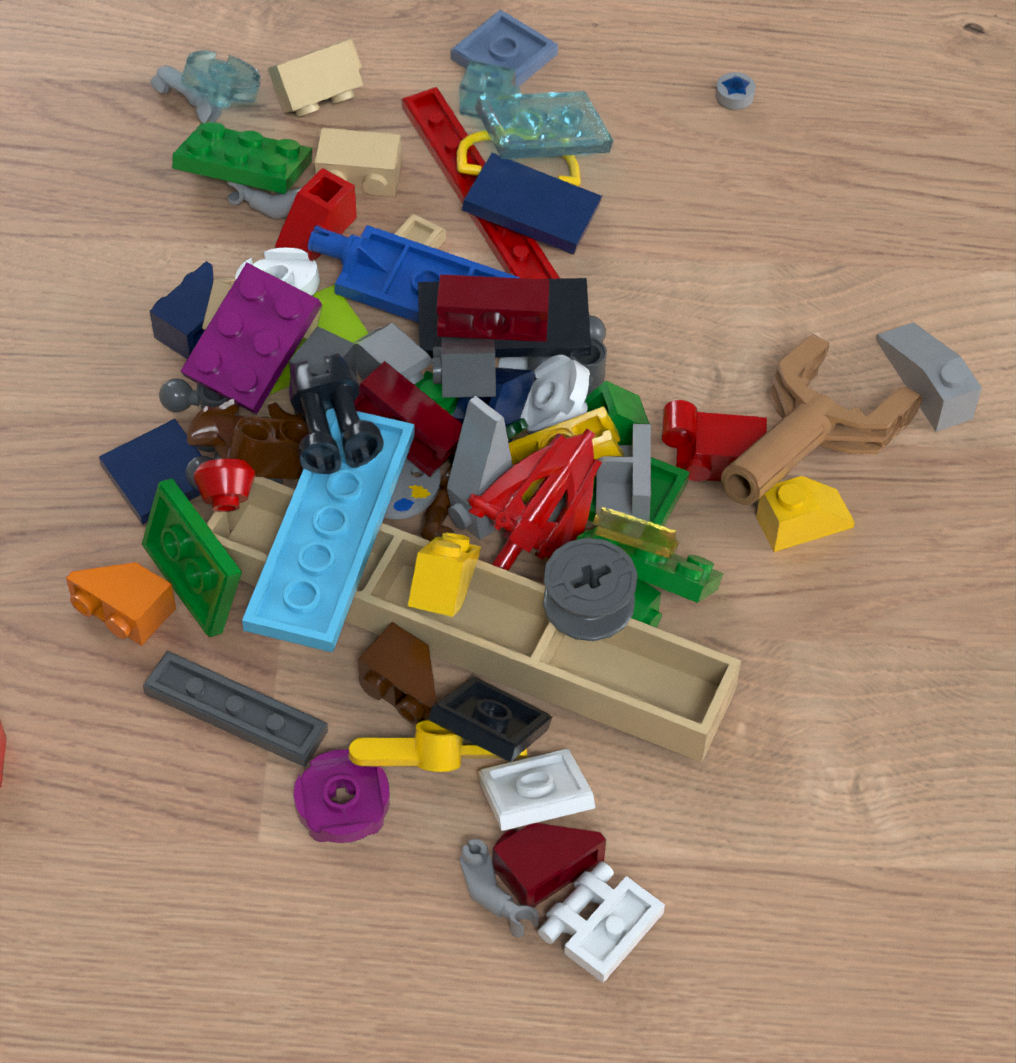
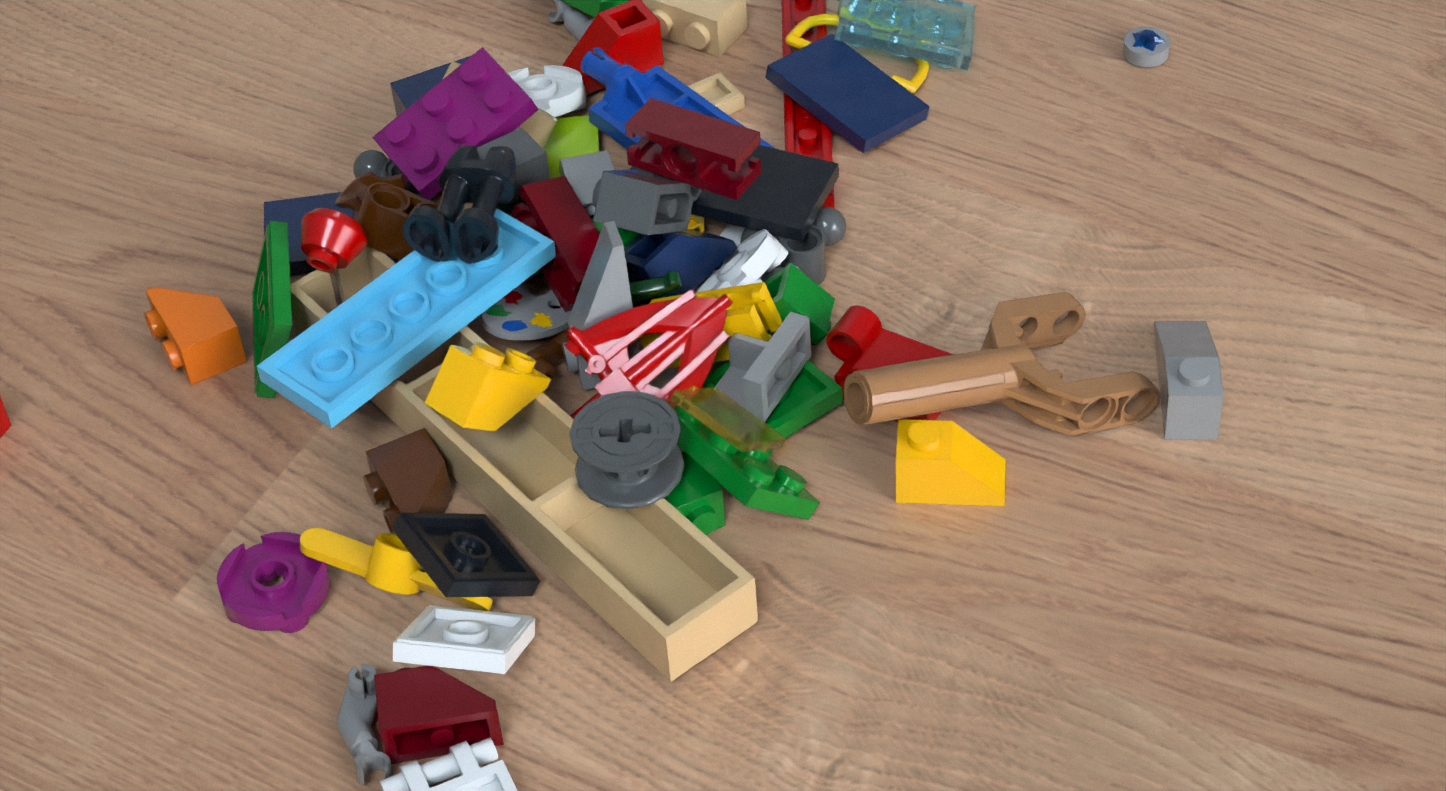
camera: 30 degrees right, 10 degrees down
(236, 708) = (235, 468): dark grey tile -> none

